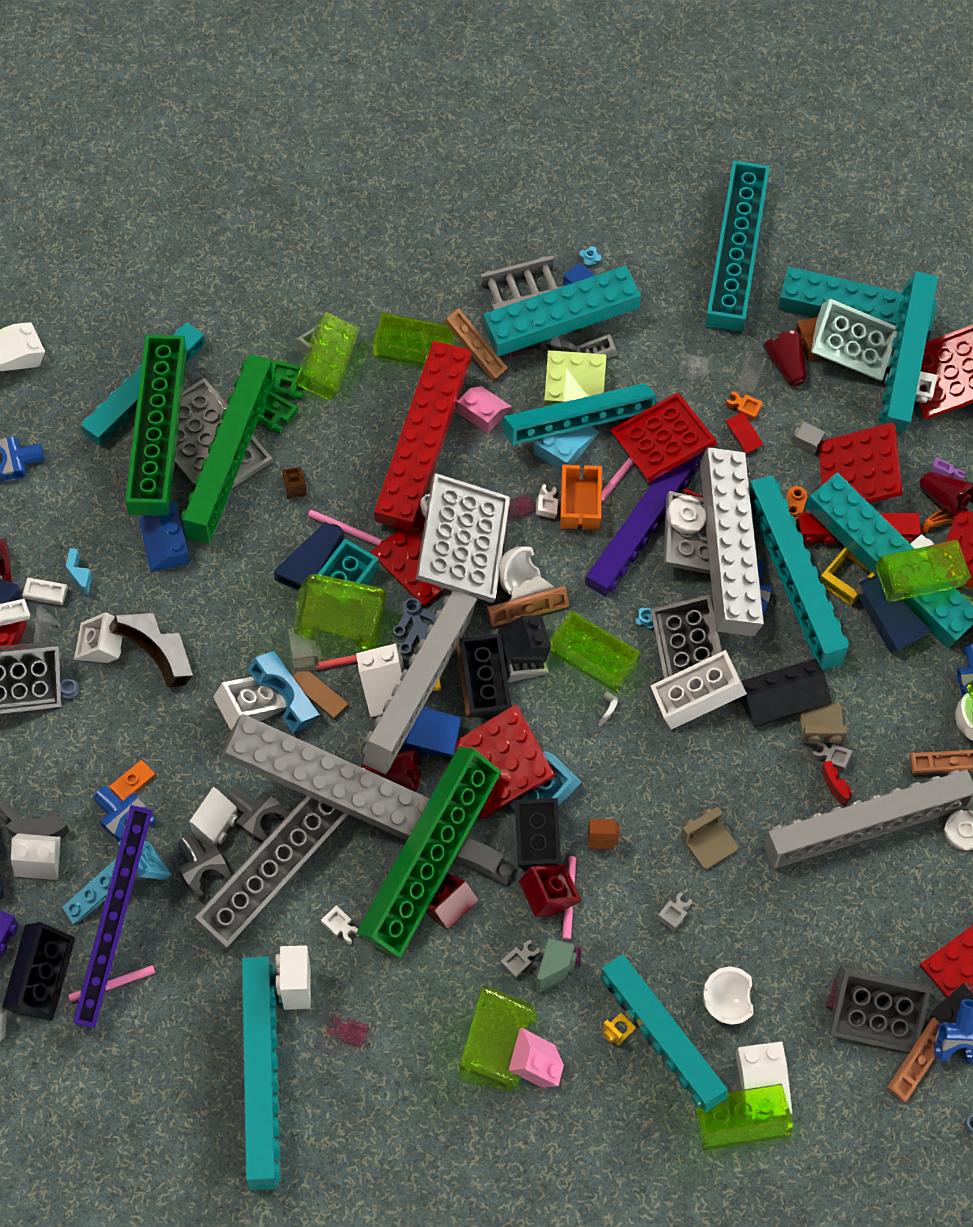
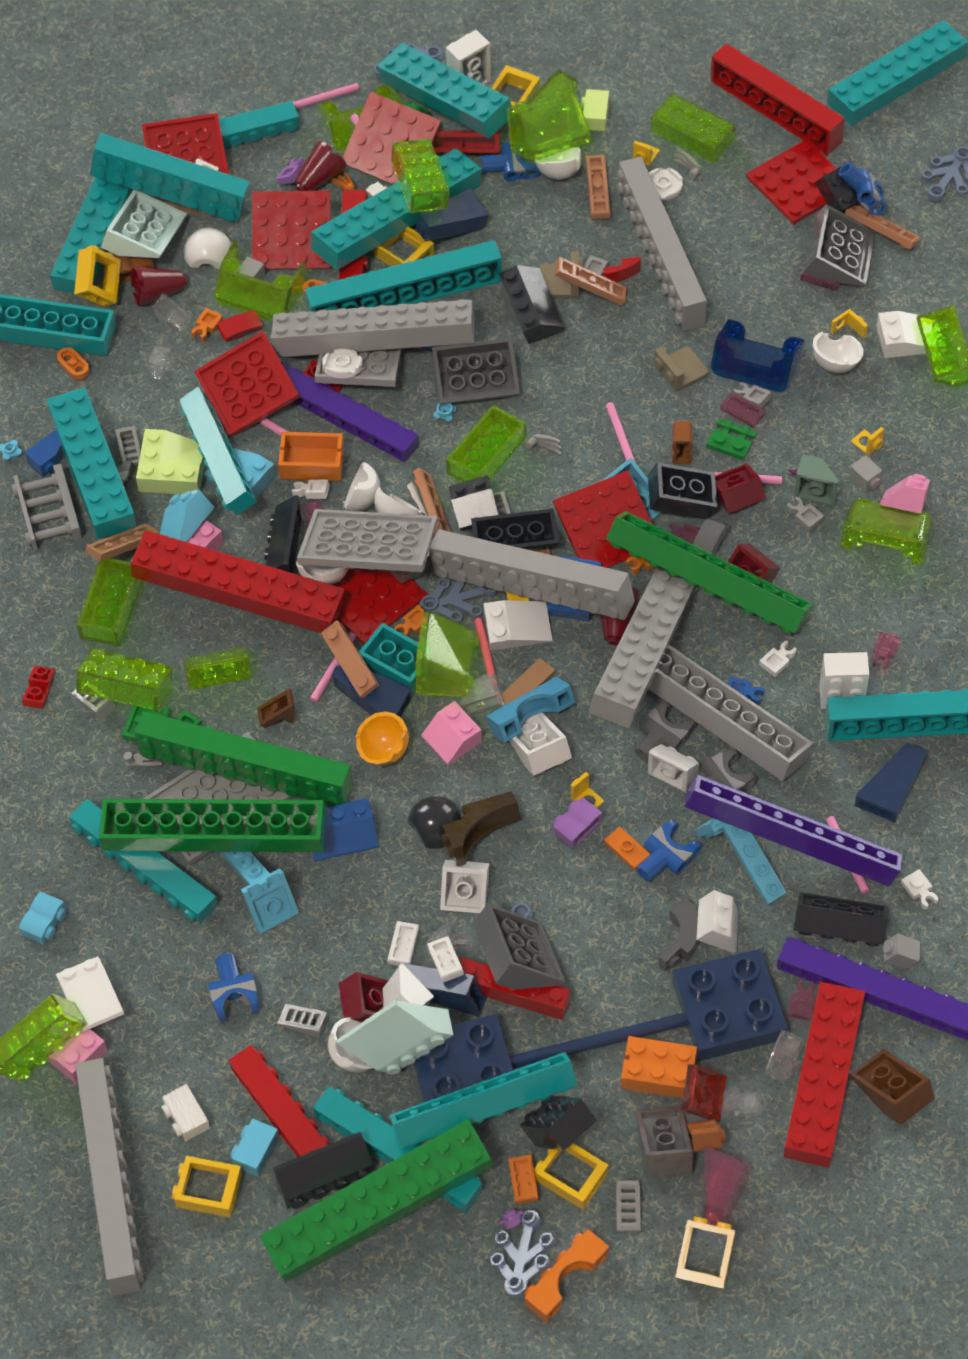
camera: 85 degrees left, 5 degrees down
(70, 1049) = (918, 886): none -> white plate
(81, 576) = (390, 908): medium azure slope -> none
(90, 469) = (266, 894): none -> medium azure bracket
(93, 313) = (42, 918): none -> medium azure brick
(160, 735) = (577, 822): none -> medium lavender brick
(174, 613) = (429, 816): none -> black cylinder
(182, 1027) = (892, 784): none -> dark blue slope
(196, 738) = (580, 788): none -> yellow bracket
(252, 565) = (382, 738): none -> light orange cylinder
(264, 628) = (452, 733): none -> bright pink slope
(303, 887) = (745, 689): none -> blue plate
(335, 297) = (39, 687): none -> red slope
(337, 532) = (350, 659): none -> nougat plate
(342, 429) = (217, 668): none -> clear neon green slope
(394, 593) = (412, 621): none -> orange plate
(490, 477) = (284, 535): none -> black slope
(495, 838) = (686, 533): none -> clear pink plate
(505, 393) = (185, 514): none -> medium azure slope
(541, 544) = (362, 489): none -> white cylinder
(570, 1022) = (865, 474): none -> light grey brick
(612, 886) = (729, 444): none -> green plate
(620, 782) = (619, 431): none -> bright pink bar
(655, 901) = (742, 409): none -> clear pink plate
(664, 1034) = (875, 399): teal brick -> none
(691, 299) = (74, 364): none -> orange plate
(698, 689) = (532, 361): white slope -> none
(725, 913) = (754, 361): none -> clear blue windscreen
(778, 1023) = (854, 321): none -> yellow bracket
(779, 462) = (250, 294): none -> clear neon green windscreen
(786, 287) = (84, 276): none -> yellow window
(808, 746) = (590, 281): none -> nougat plate
(840, 403) = (206, 247): none -> white cylinder

